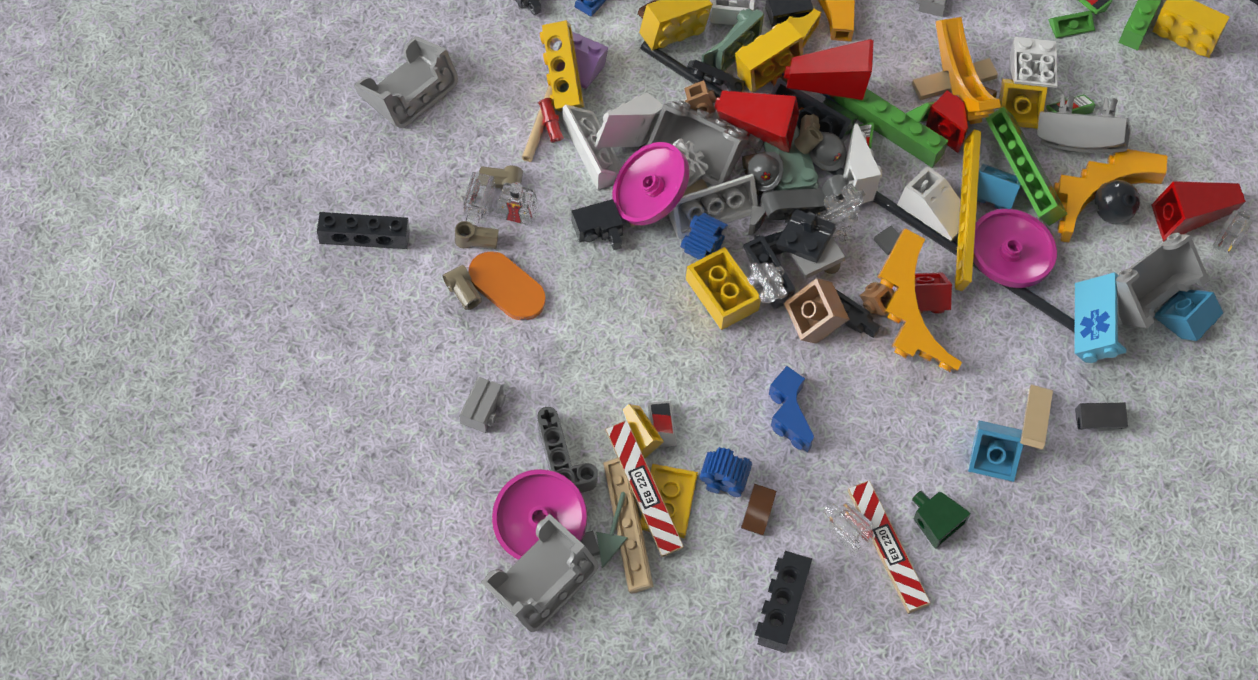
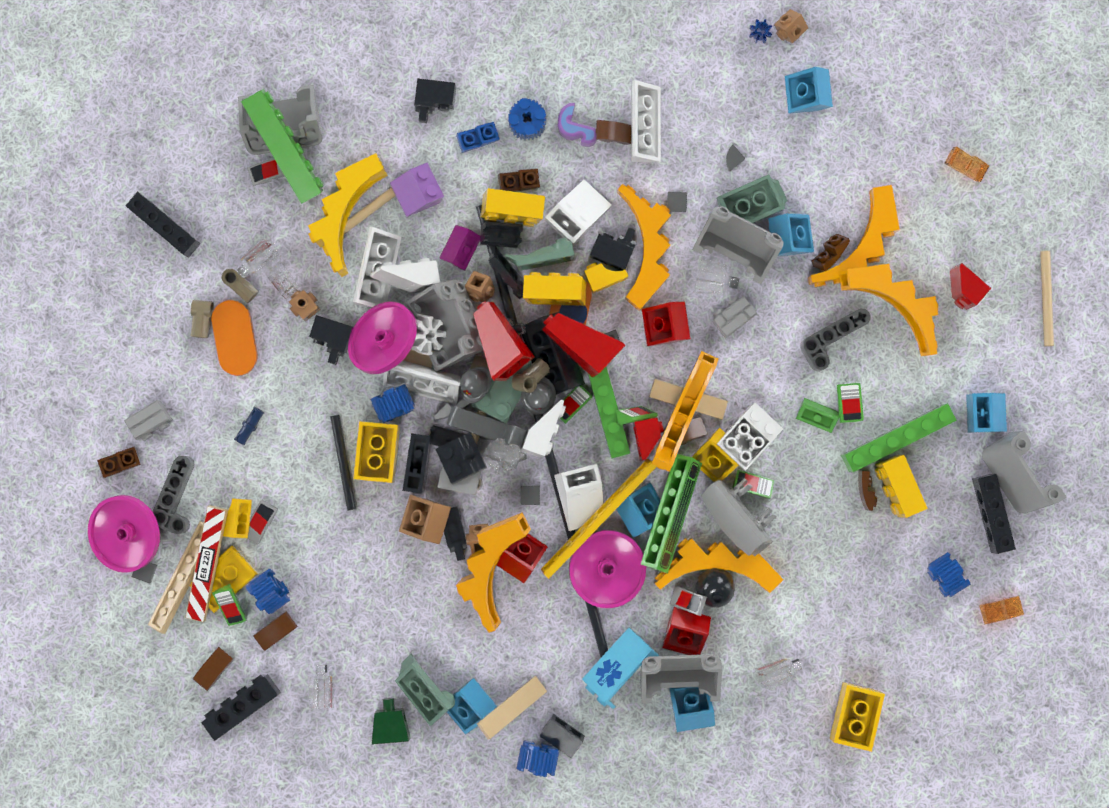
camera: 40 degrees right, 25 degrees up
(427, 129) = (264, 172): none -> slope
(429, 92) = (282, 145): none -> bright green brick
(481, 464) = (118, 462): none -> reddish brown slope
(507, 175) = (294, 252): dark tan piece -> none
(514, 94) = (337, 207): none -> yellow arch
(543, 576) = (90, 577): light grey windscreen -> none
(550, 120) = (361, 226): red pin -> none
(551, 34) = (404, 184): yellow brick -> none
(552, 212) = (310, 307): none -> medium nougat brick
(583, 348) = (249, 425): none -> dark blue pin
(610, 543) = (161, 582): sand green piece -> none
(655, 81) = (460, 247): none -> magenta panel
(682, 48) = (500, 234): none -> black hinge
(696, 514) = (229, 605): none -> slope
(697, 324) = (343, 462): none -> black piece
(727, 586) = (212, 669): none -> reddish brown slope
(770, 279) = (402, 477): clear hips -> none
(789, 418) = (346, 582): blue arch -> none
(886, 29) = (666, 323): none -> red slope
(889, 548) = (342, 718): tile -> none
(943, 460) = (423, 692): none -> sand green slope
(1099, 445) = (538, 759): none -> blue brick
(1103, 225) = (688, 600): none -> slope
(1123, 249) = (686, 632): none -> red slope
(1169, 54) = (867, 497): none -> reddish brown slope
(1194, 204) = (764, 632): red slope -> none

